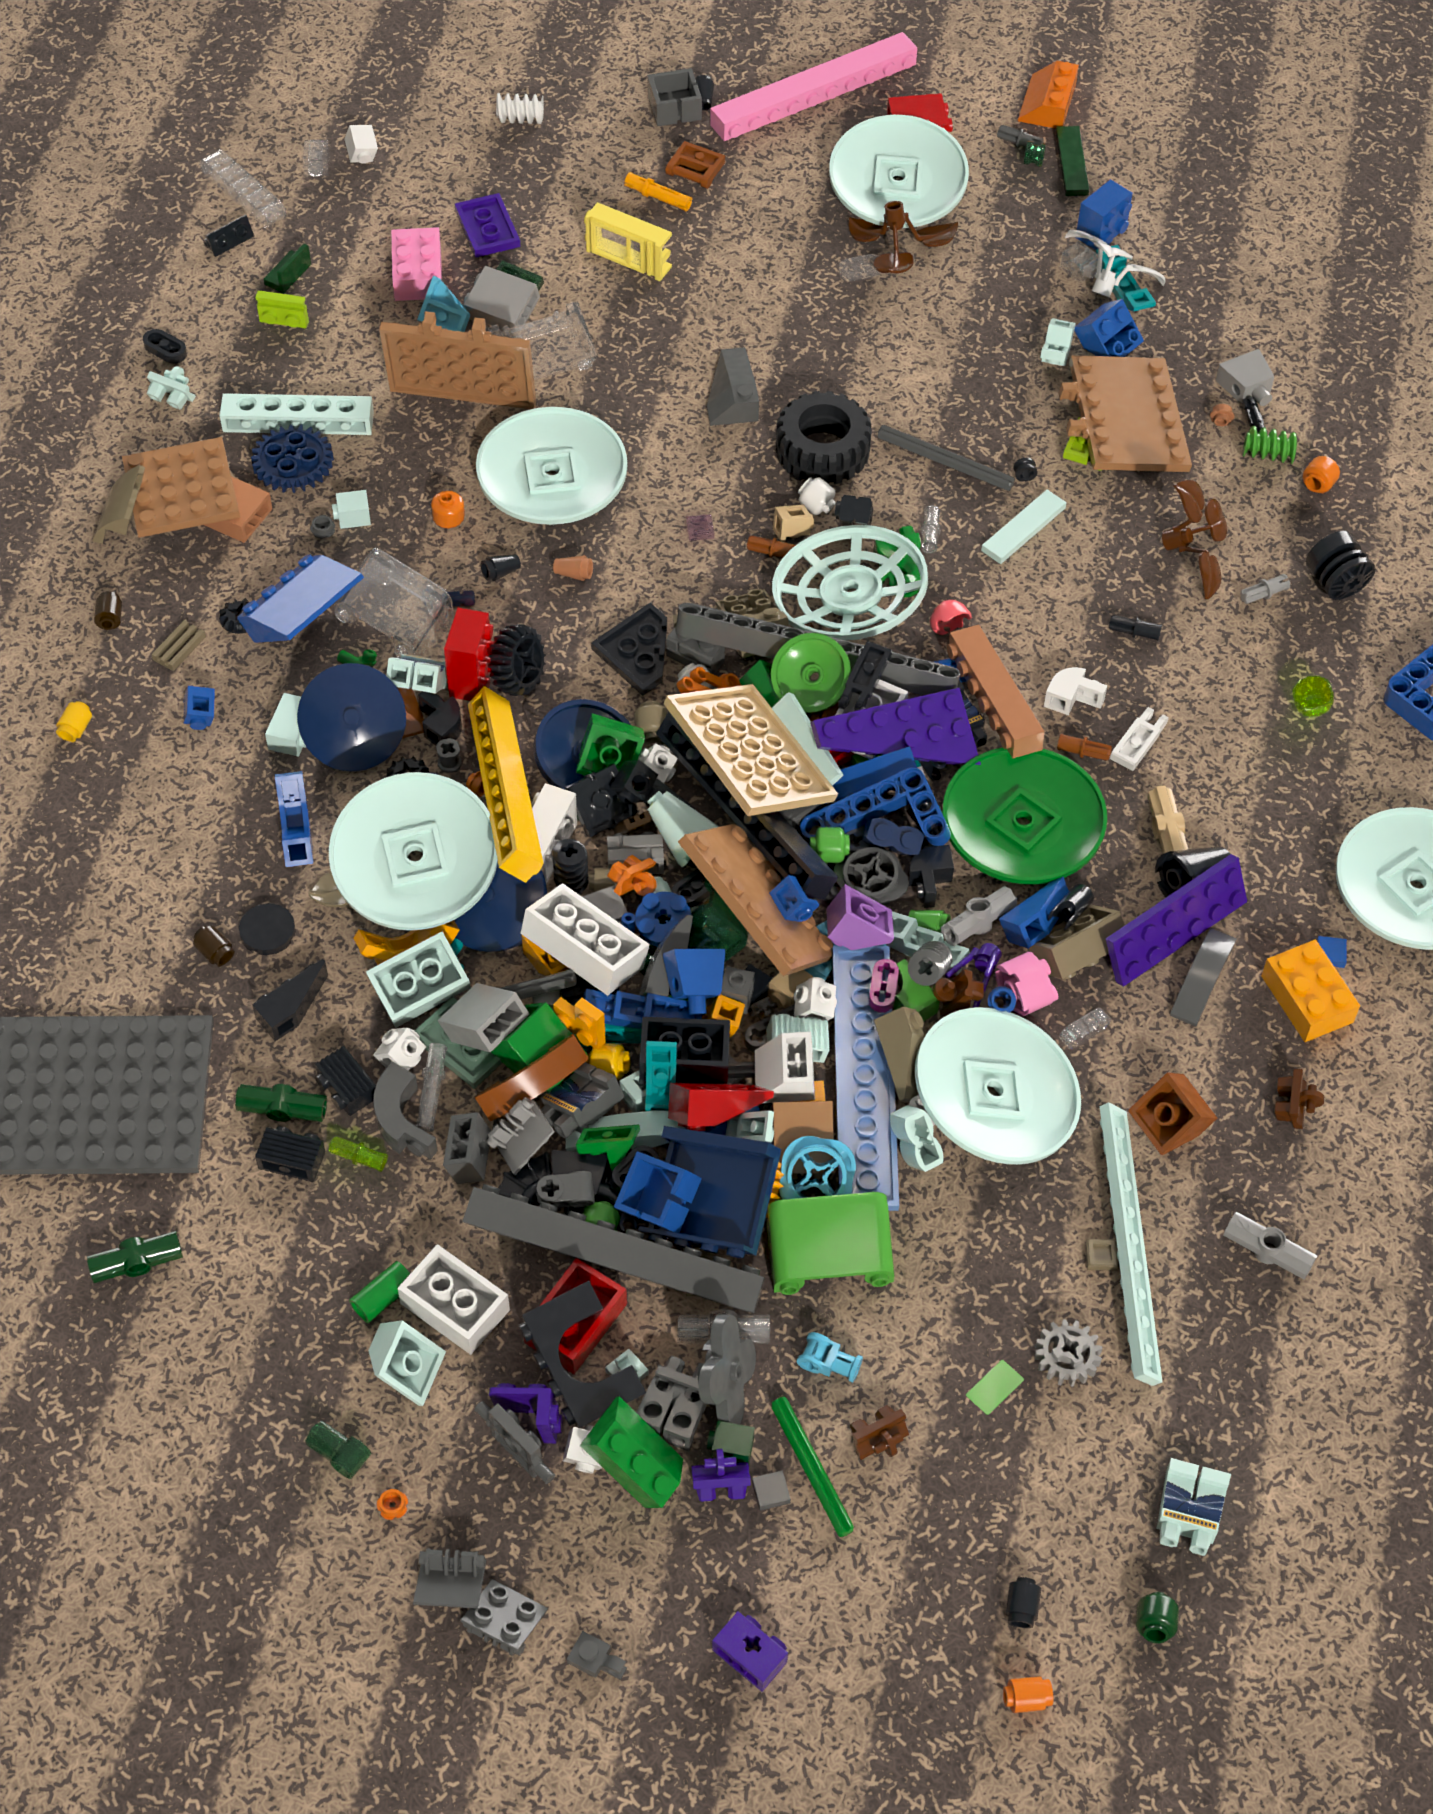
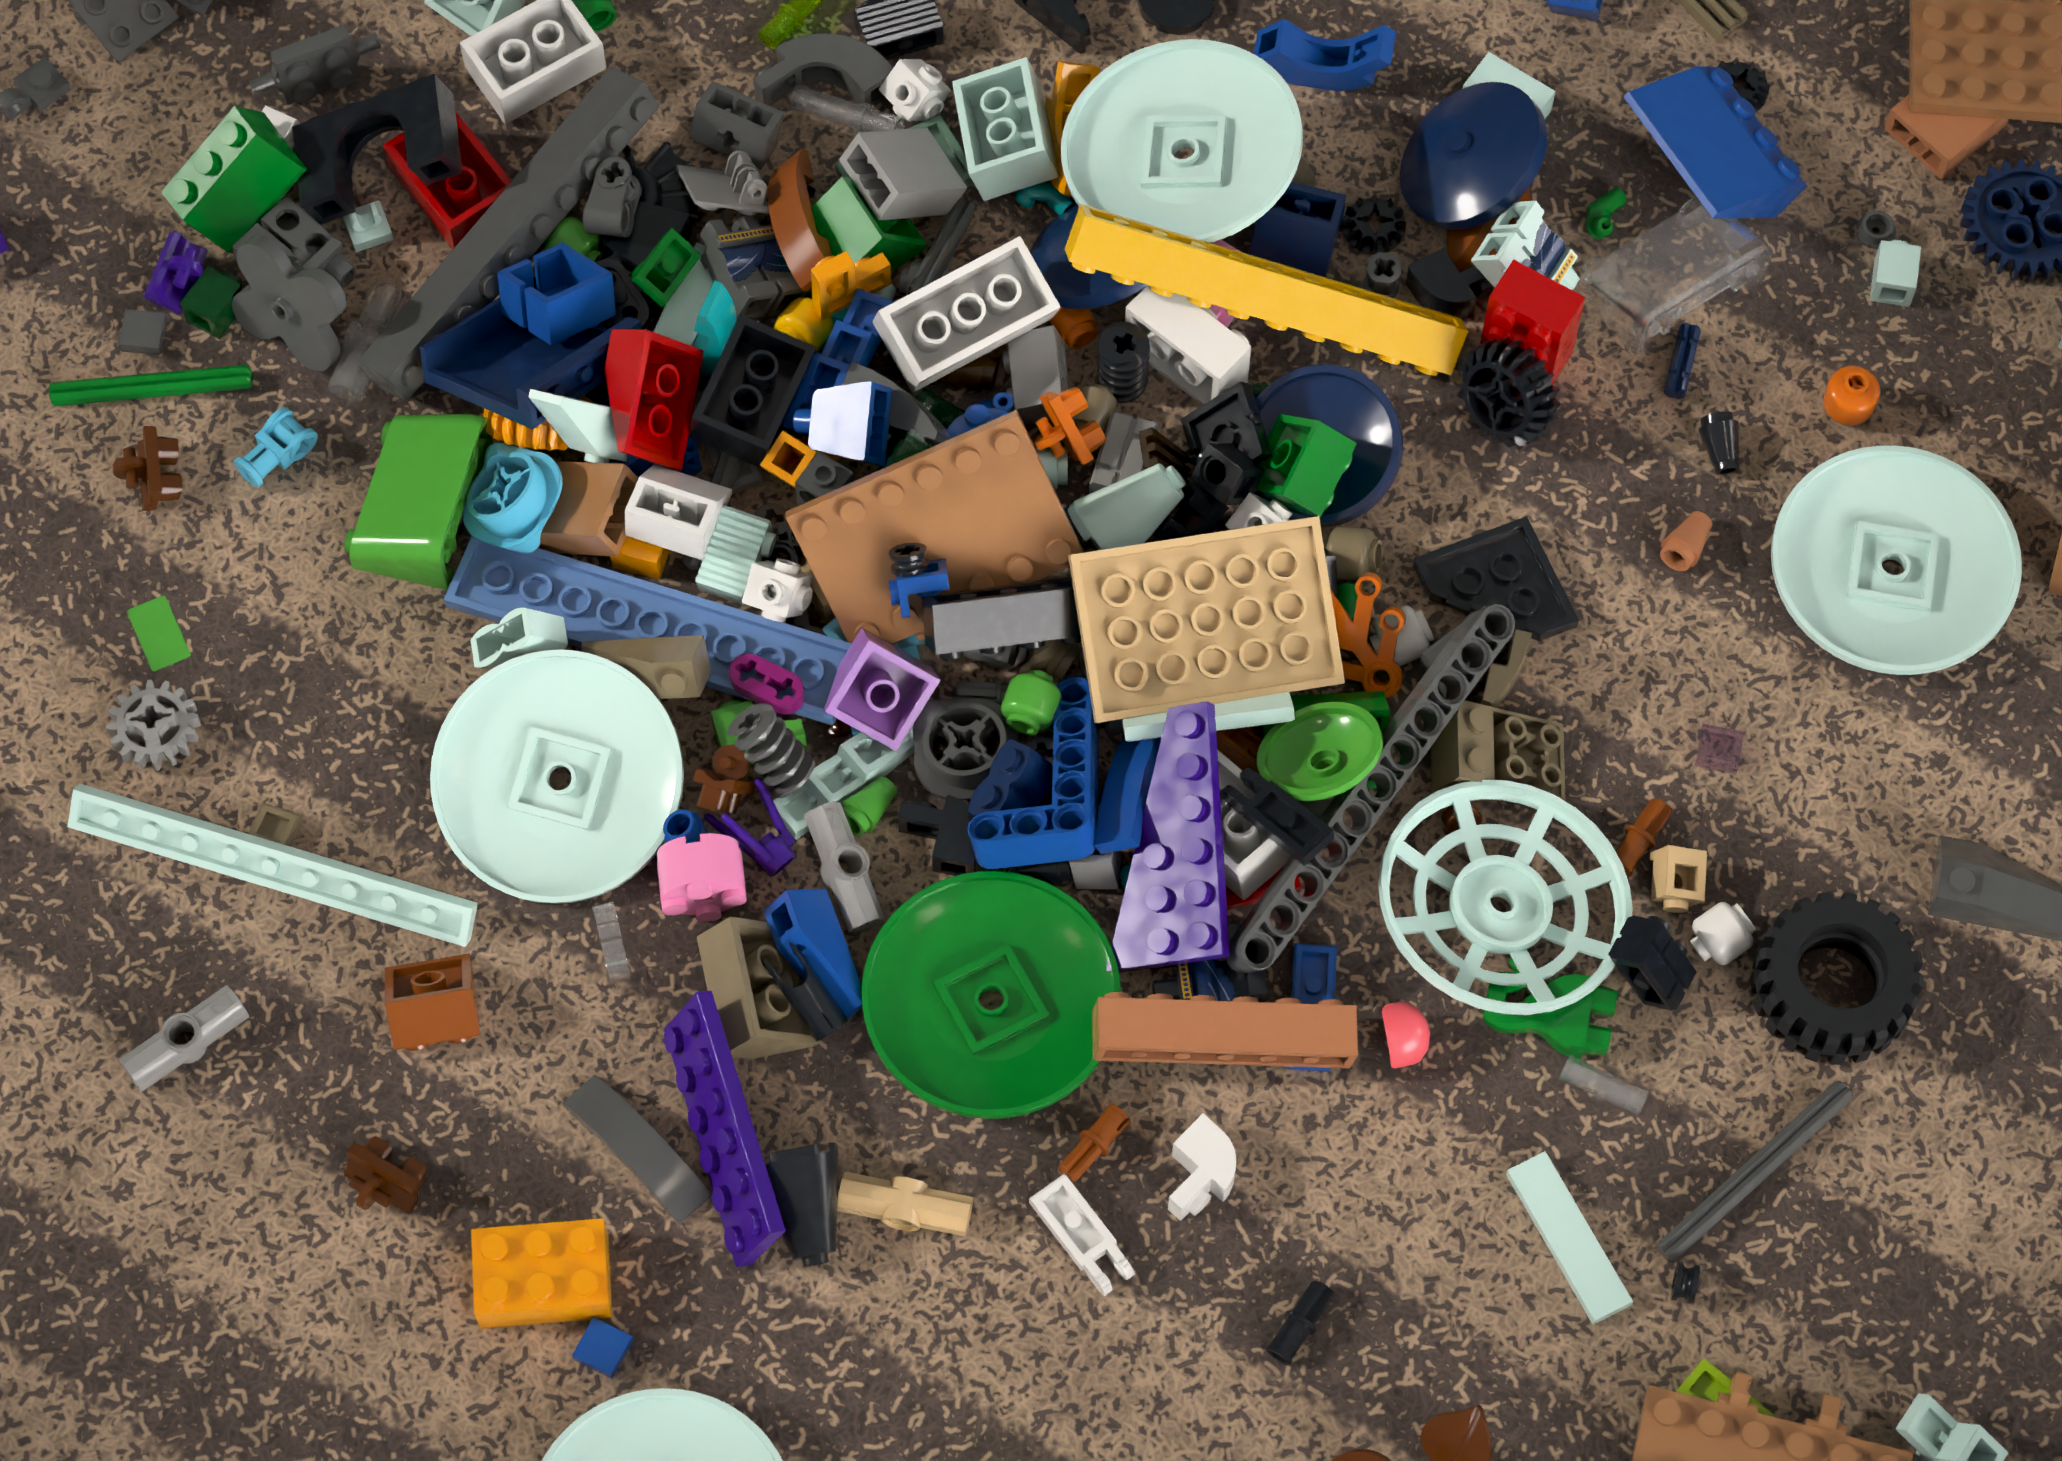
camera: 110 degrees right, 10 degrees up
(534, 1399) = (362, 79): dark purple bracket -> none
(777, 899) = (908, 559): none -> black bush

